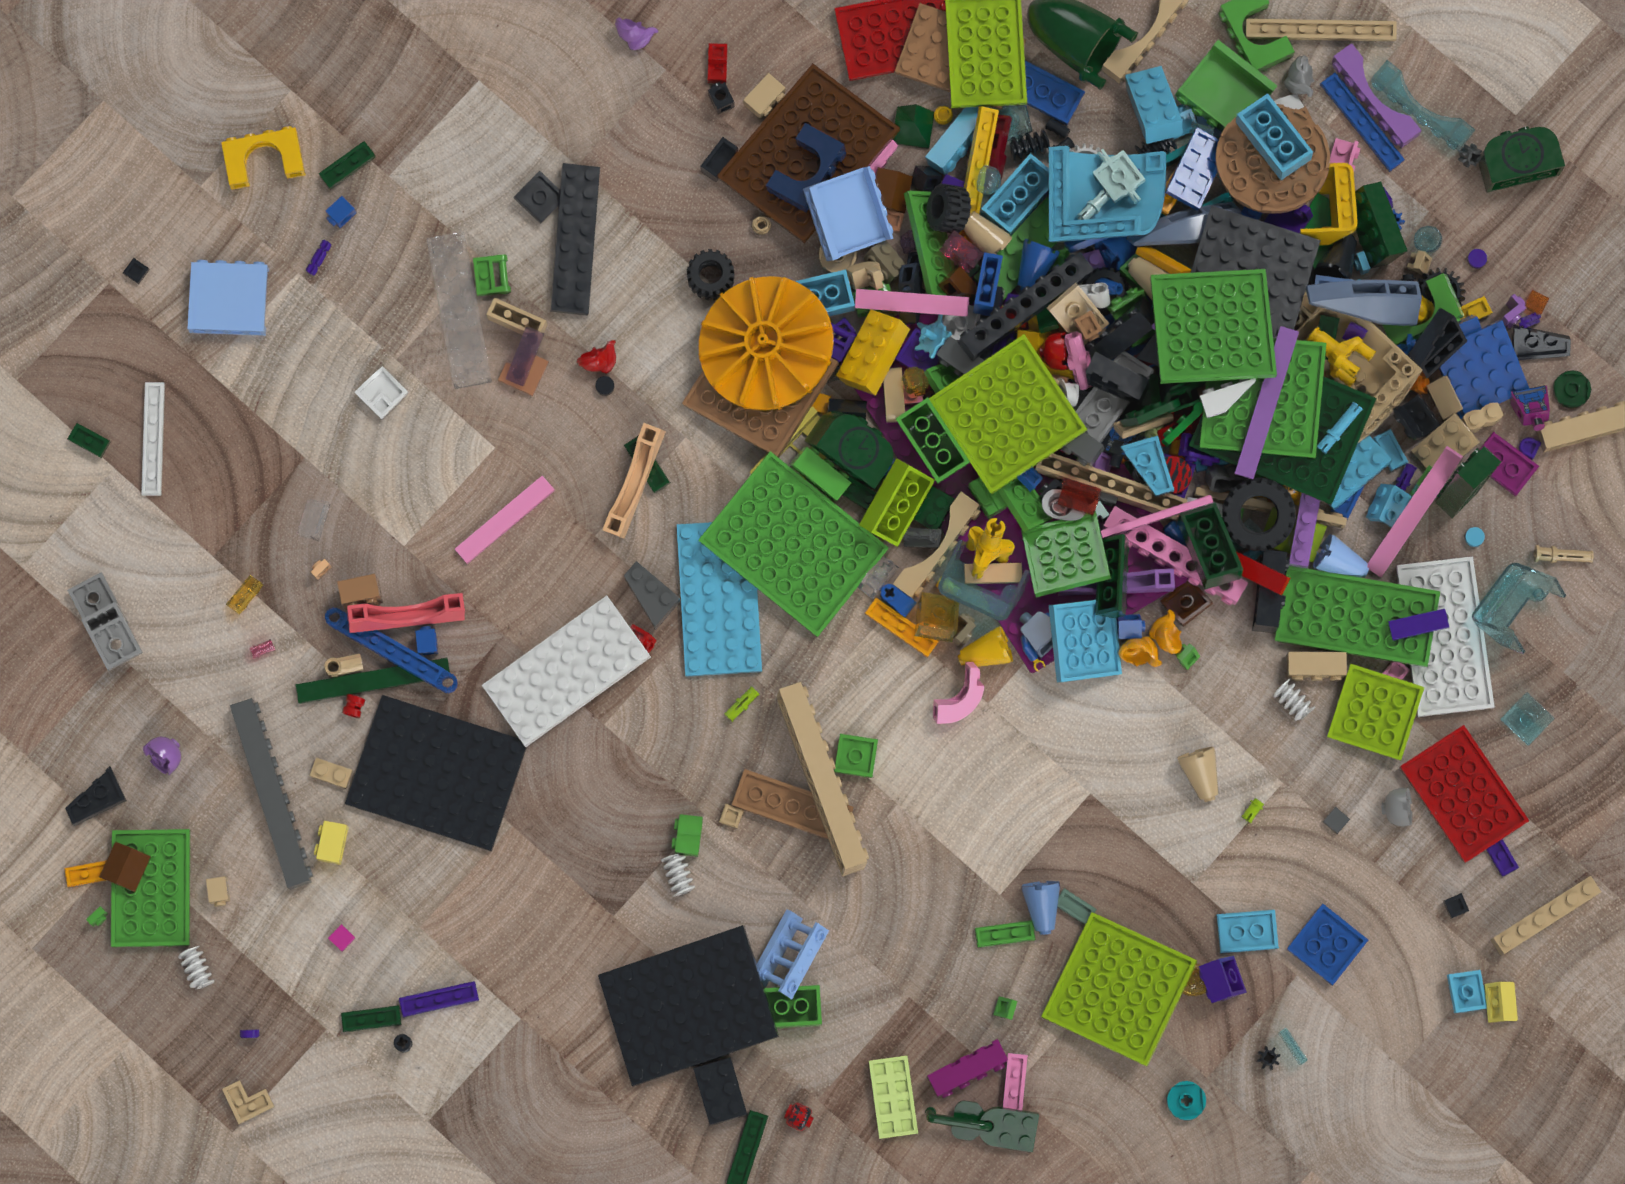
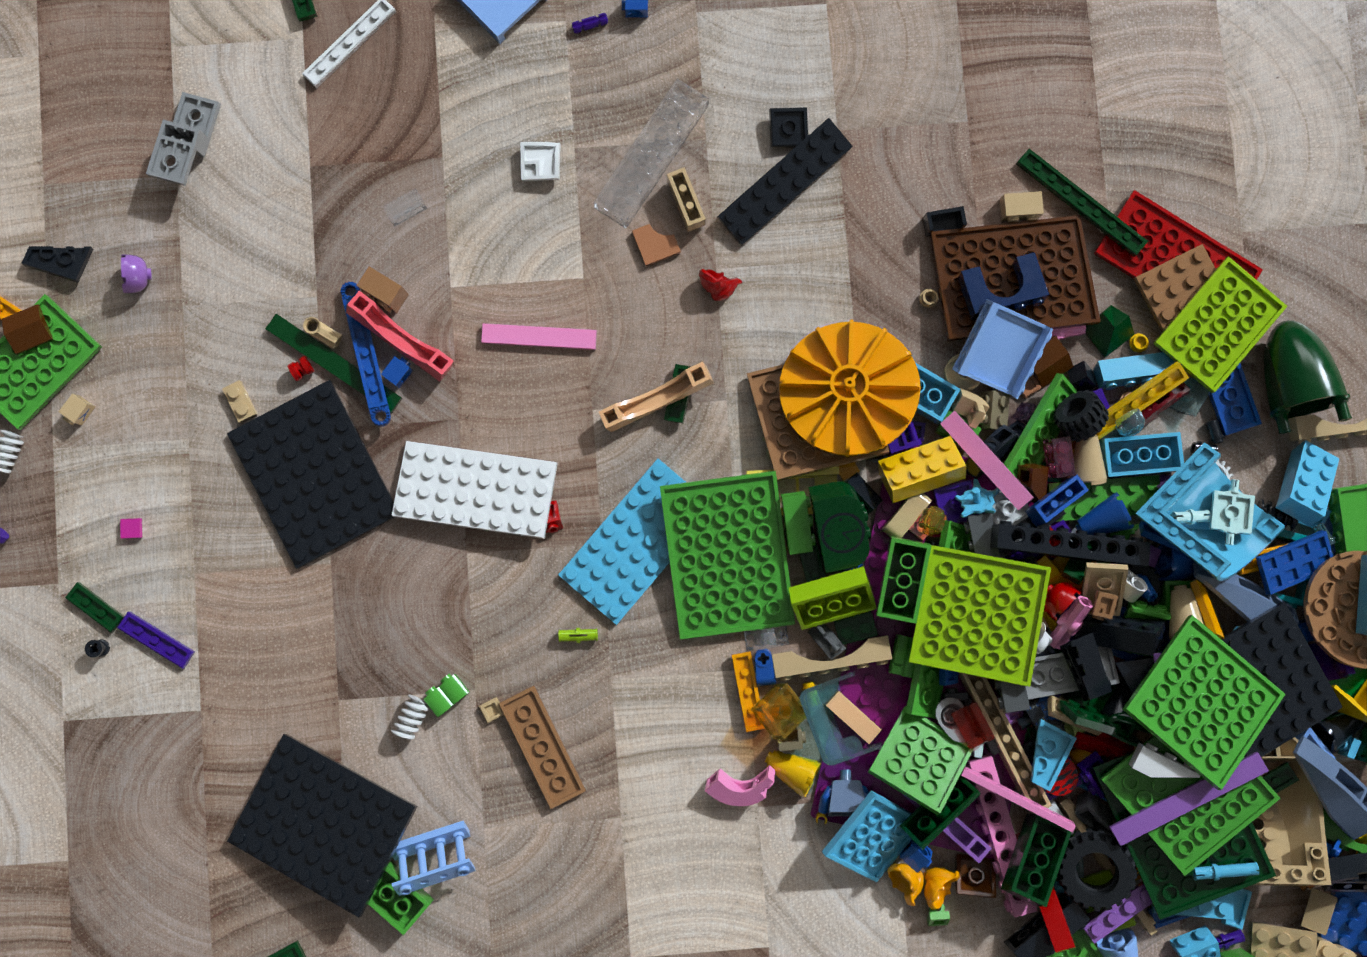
camera: 35 degrees right, 5 degrees up
(244, 594) = (301, 214): clear yellow plate -> none
(262, 649) = (278, 265): clear pink pin -> none
(270, 793) = (181, 376): dark grey brick -> none
(320, 568) = (373, 246): light nougat plate -> none
(331, 843) = (189, 452): light yellow brick -> none
(485, 275) = (694, 148): bright green plate -> none
(525, 356) = (665, 230): plate -> none
(604, 385) = (704, 307): black tile -> none
(633, 33) = (970, 72): medium lavender hair -> none
(651, 593) = (589, 493): dark grey wedge -> none
(710, 259) = (864, 285): black tyre -> none
(717, 63) = (1009, 151): red slope -> none
(720, 1091) = (284, 911): black brick -> none
(721, 105) = (984, 184): black brick -> none
(805, 53) = (1082, 202): none -> dark green tile
(822, 779) = (578, 753): tan brick -> none
(856, 755) = (624, 754): bright green plate -> none
(988, 546) = (869, 697): yellow wheel -> none
(1029, 144) = (1184, 424): black piece -> none
(1173, 531) = (1017, 816): blue cone -> none
(1184, 422) = (1106, 747): green plate -> none
(1340, 352) = (1278, 812): yellow wheel -> none
(1354, 330) = (1299, 802): dark purple tile -> none
(1416, 418) = (1282, 905): black bracket -> none

